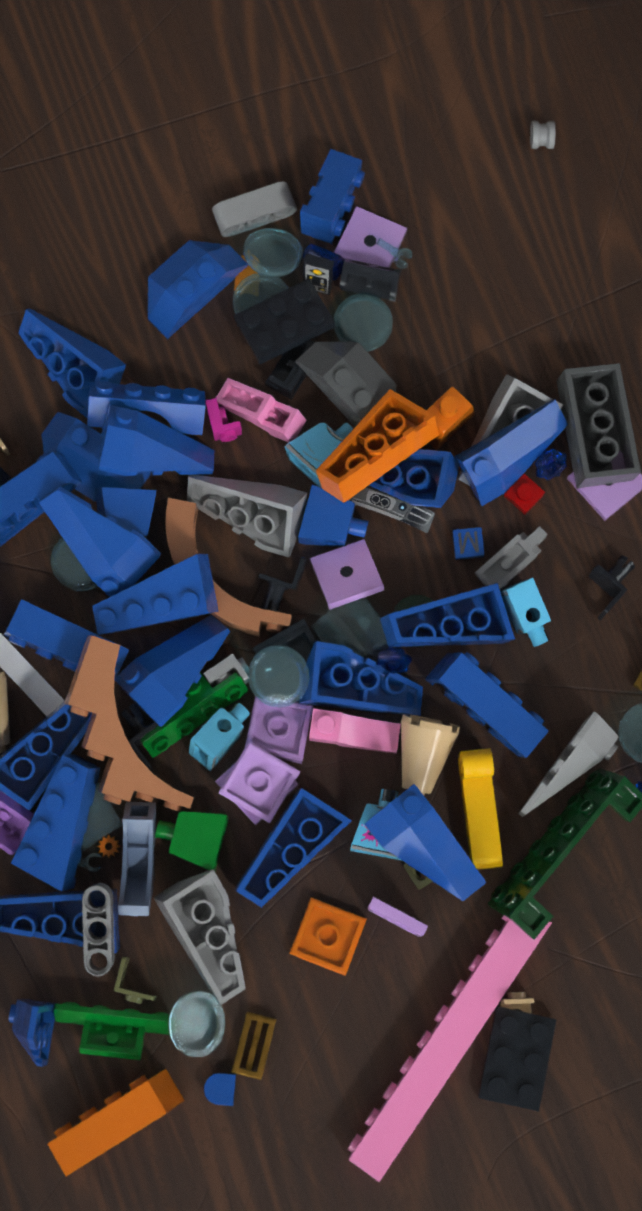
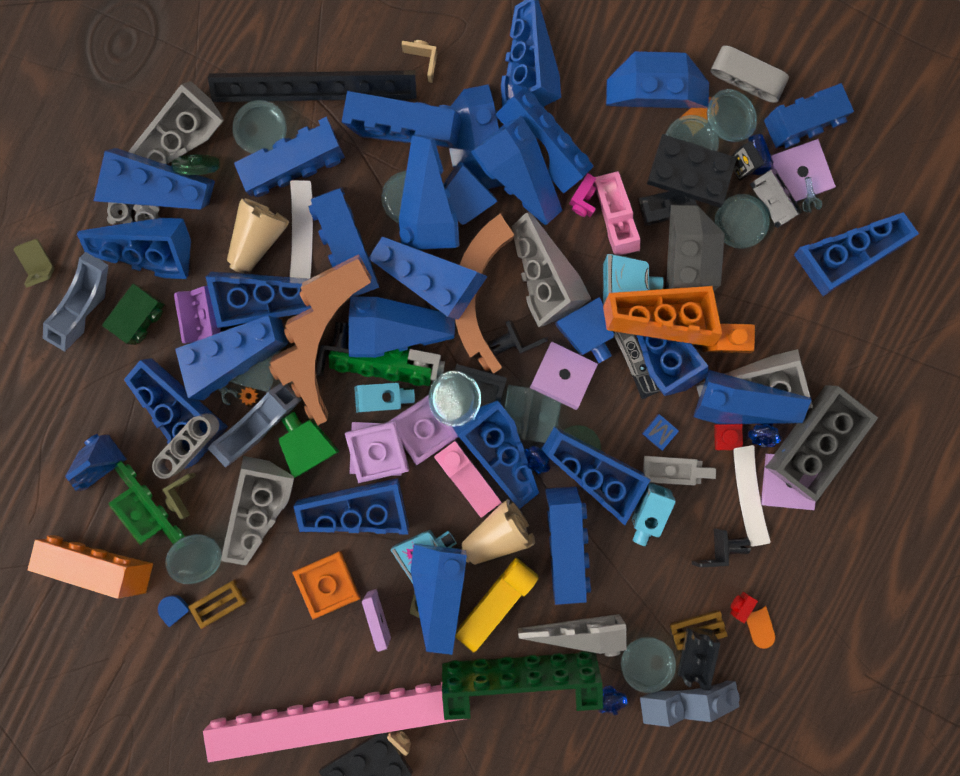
camera: 45 degrees right, 10 degrees up
(468, 271) = (849, 254): none -> blue wedge
(588, 522) = (749, 496): none -> white sticker

